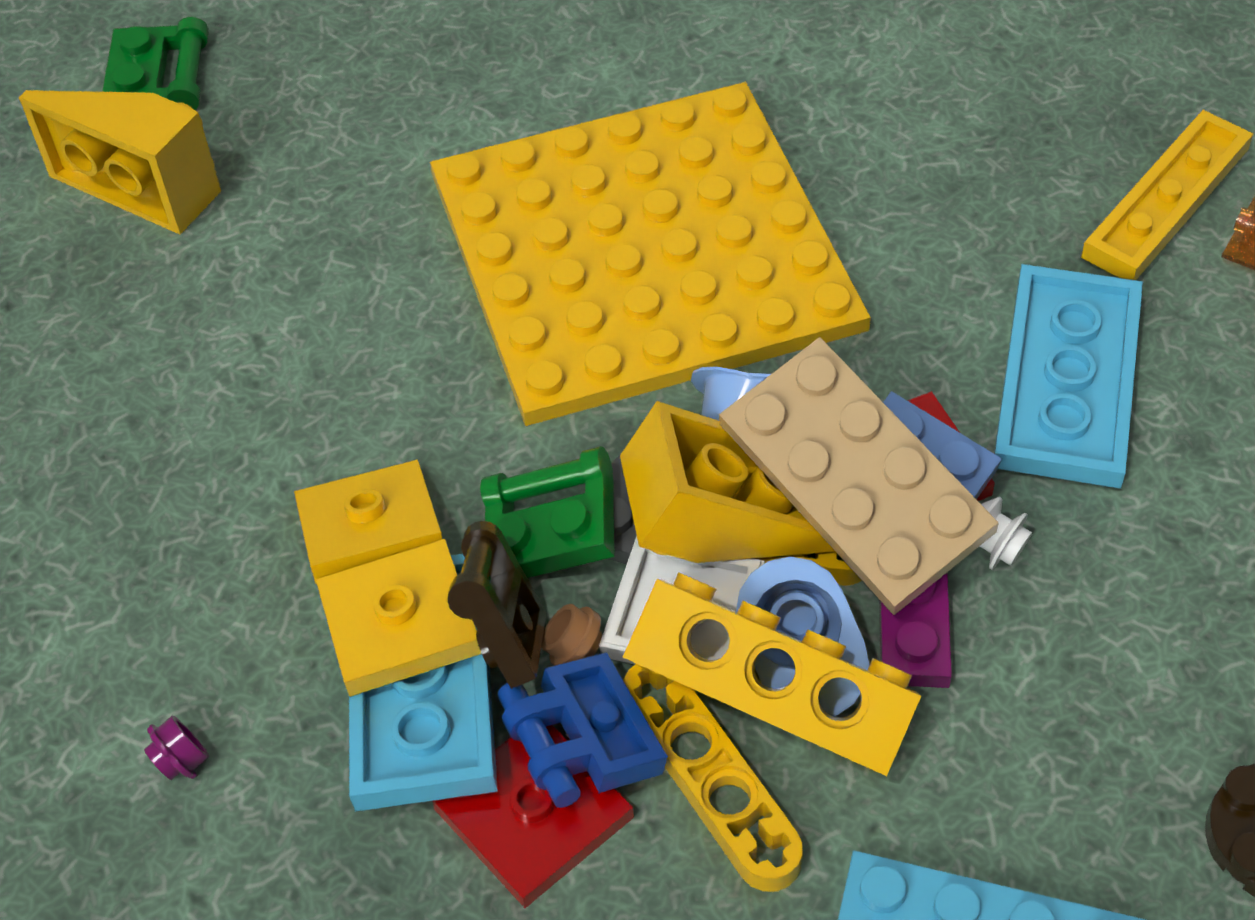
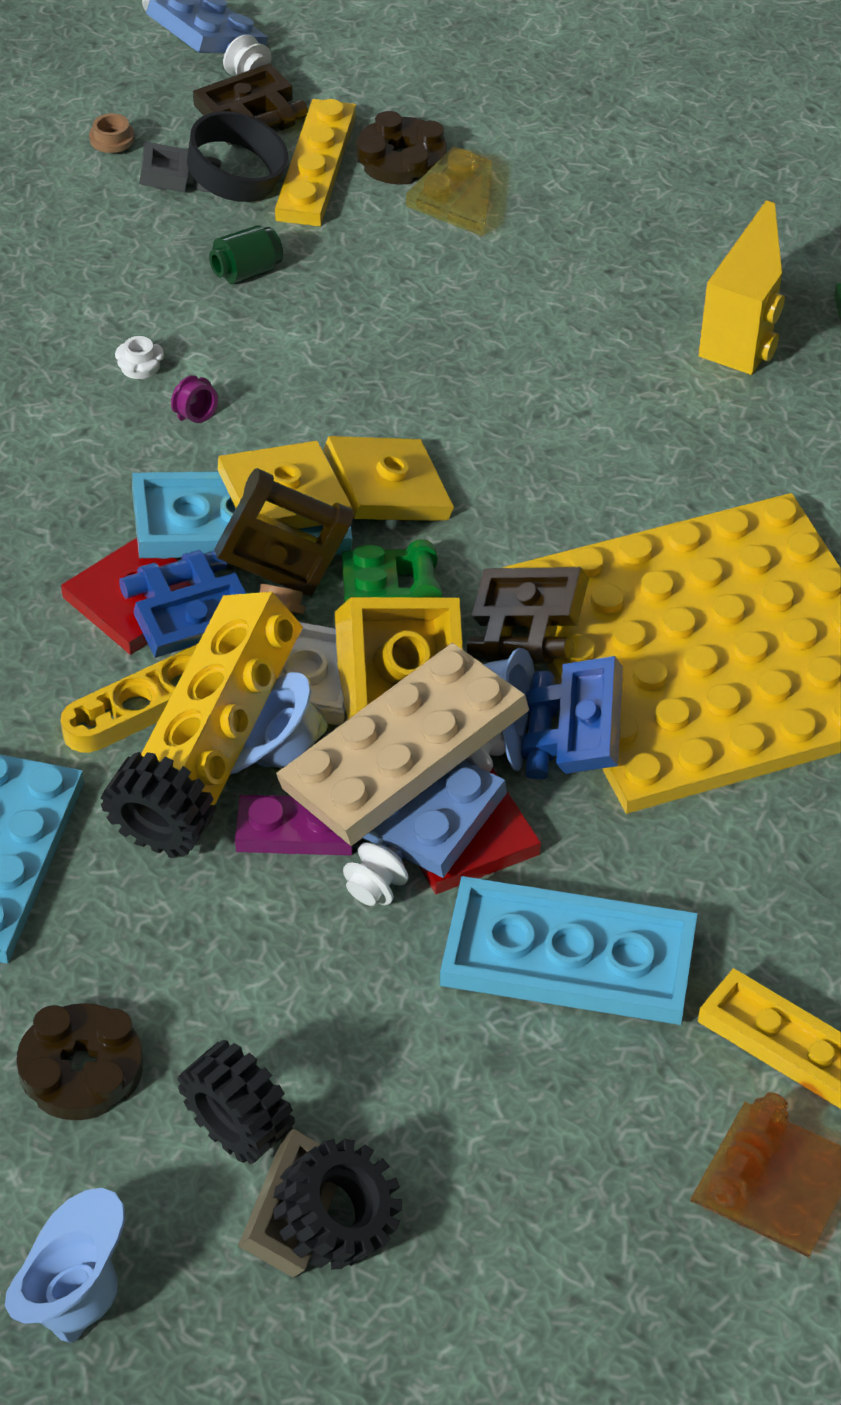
camera: 85 degrees right, 5 degrees down
(76, 838) = (139, 357): none -> white plate
(605, 368) = (527, 598): none -> dark brown plate
(772, 324) = (587, 718): none -> blue plate
(935, 740) = (158, 804): none -> black tyre

